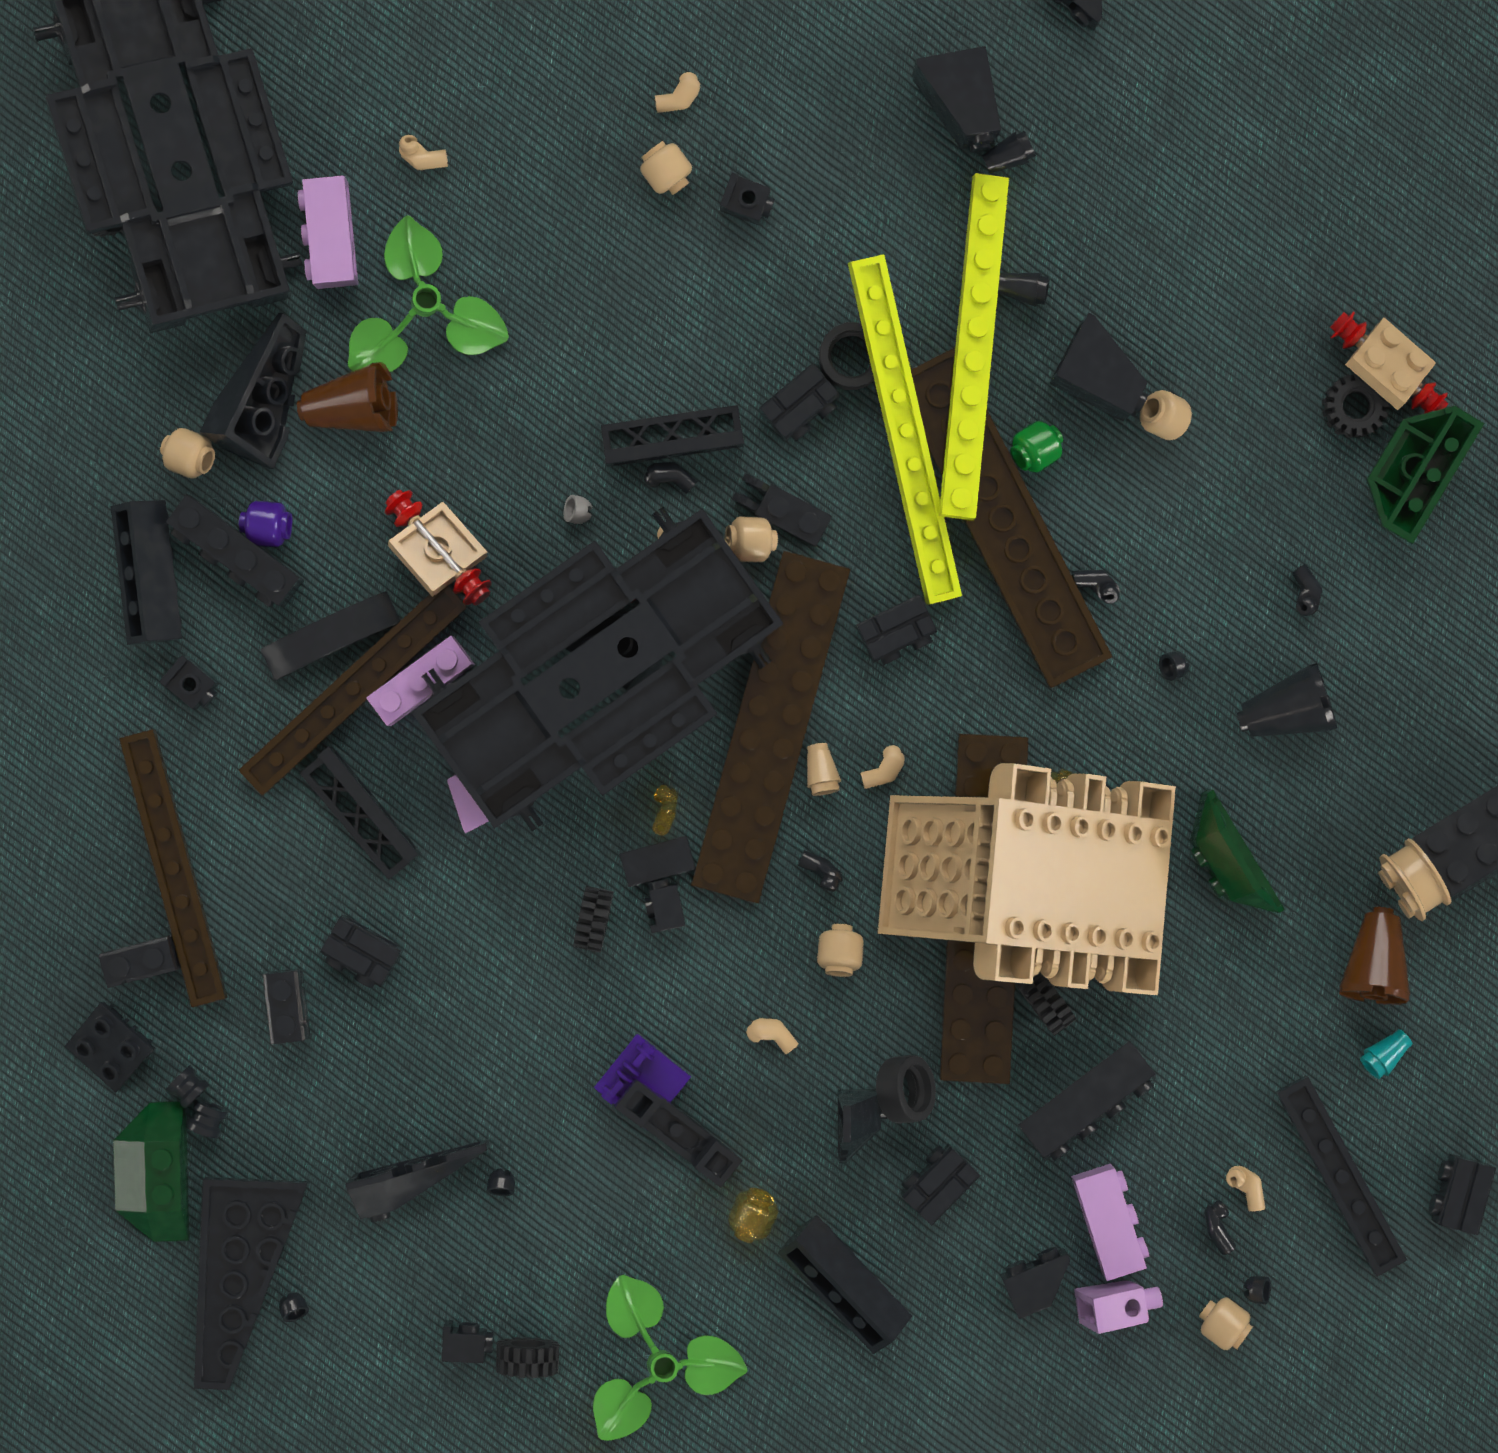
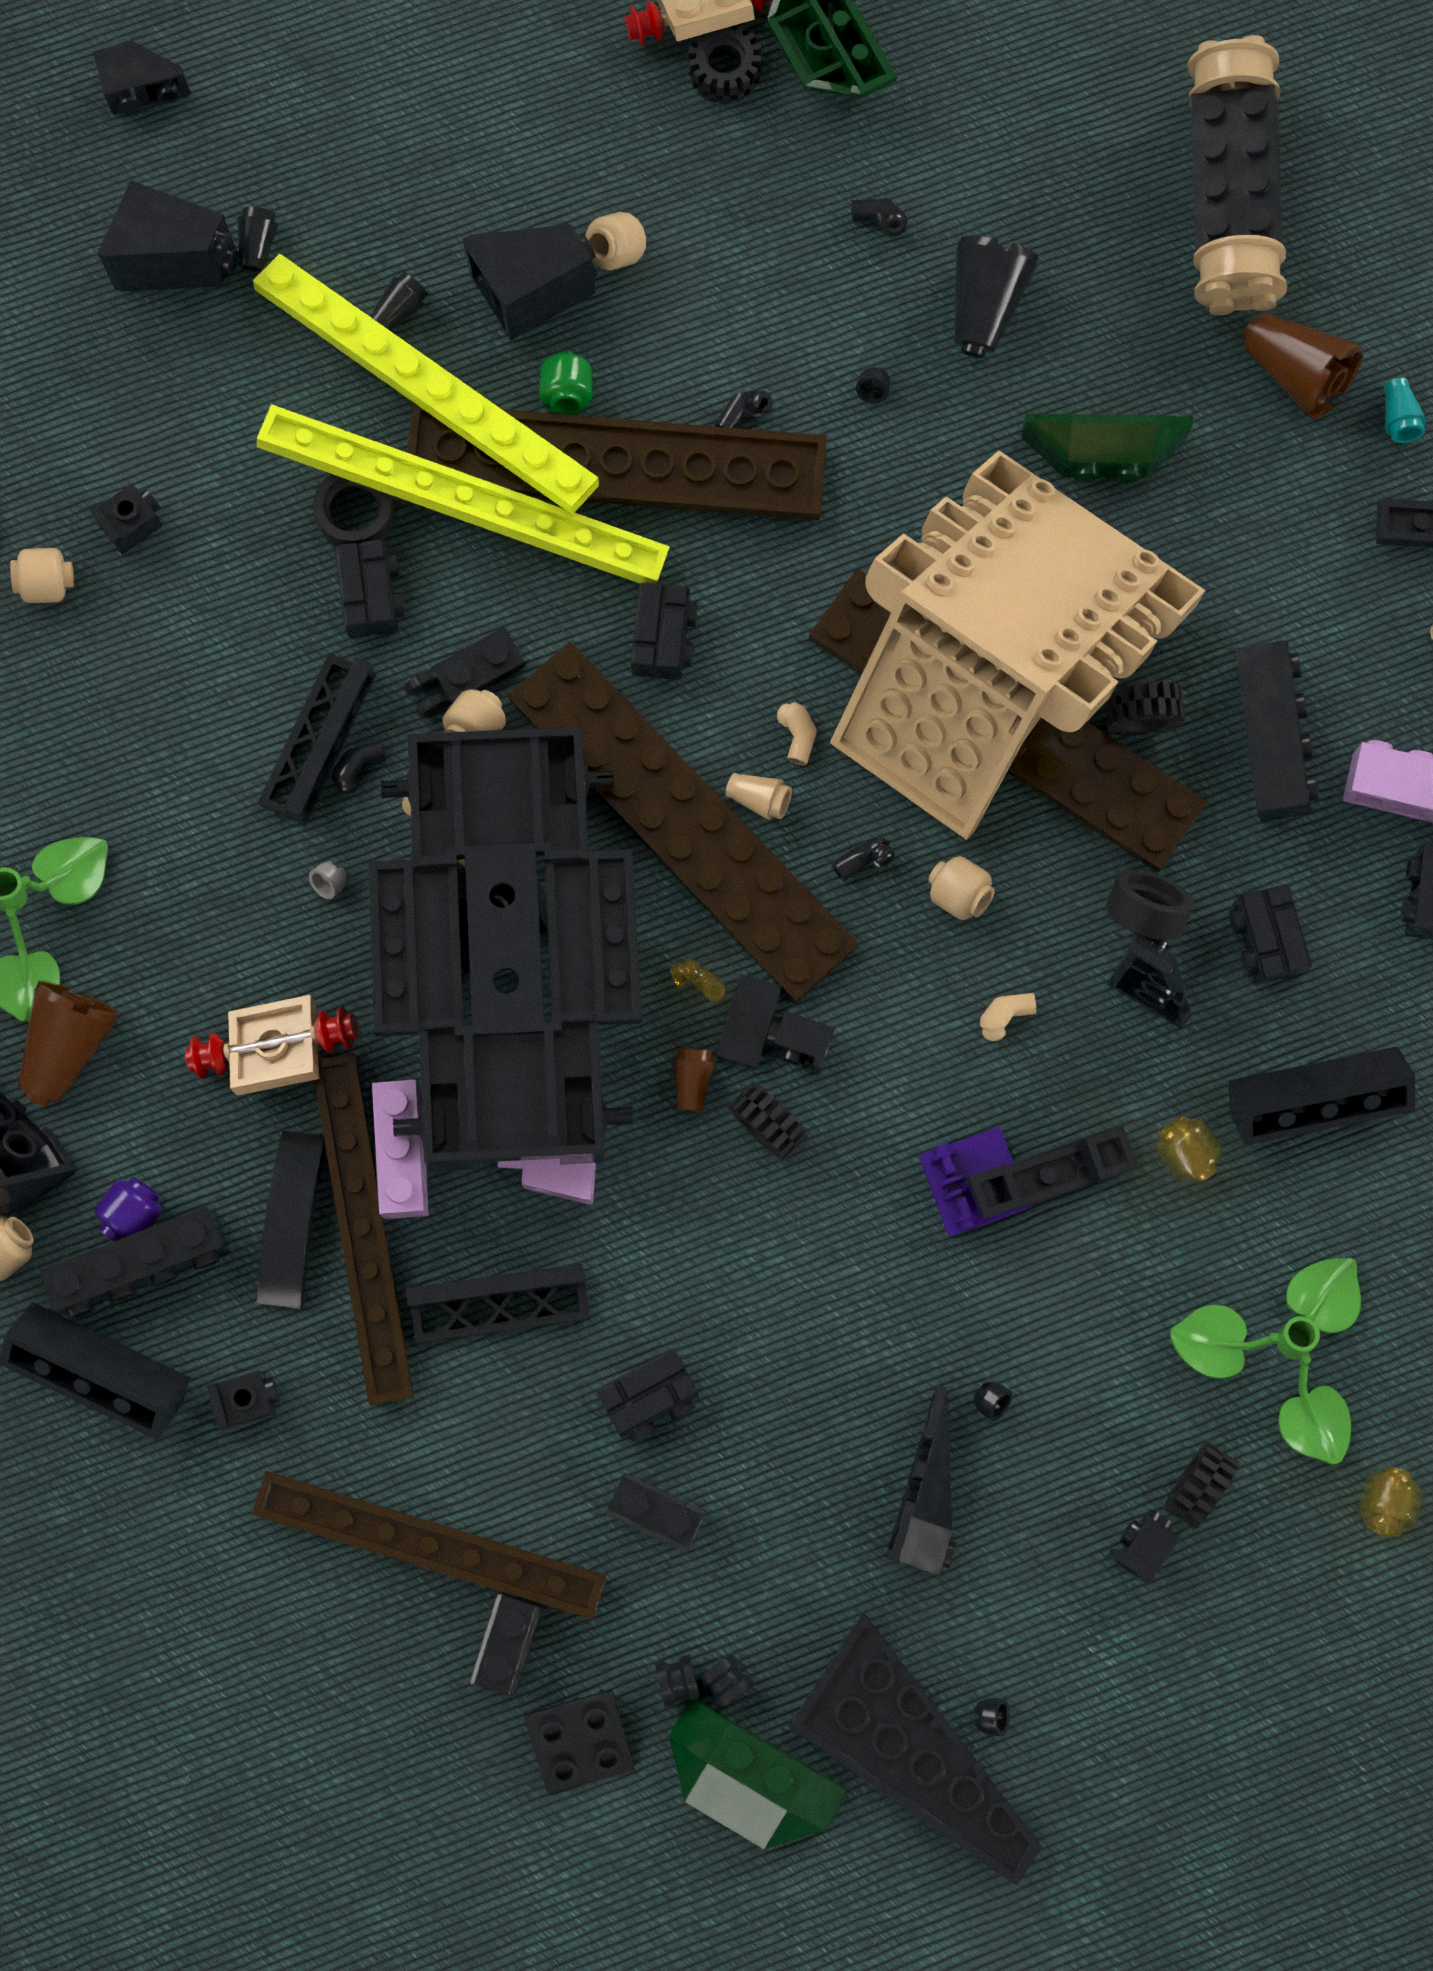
camera: 55 degrees left, 10 degrees down
(596, 846) = (692, 1077): none -> reddish brown cone

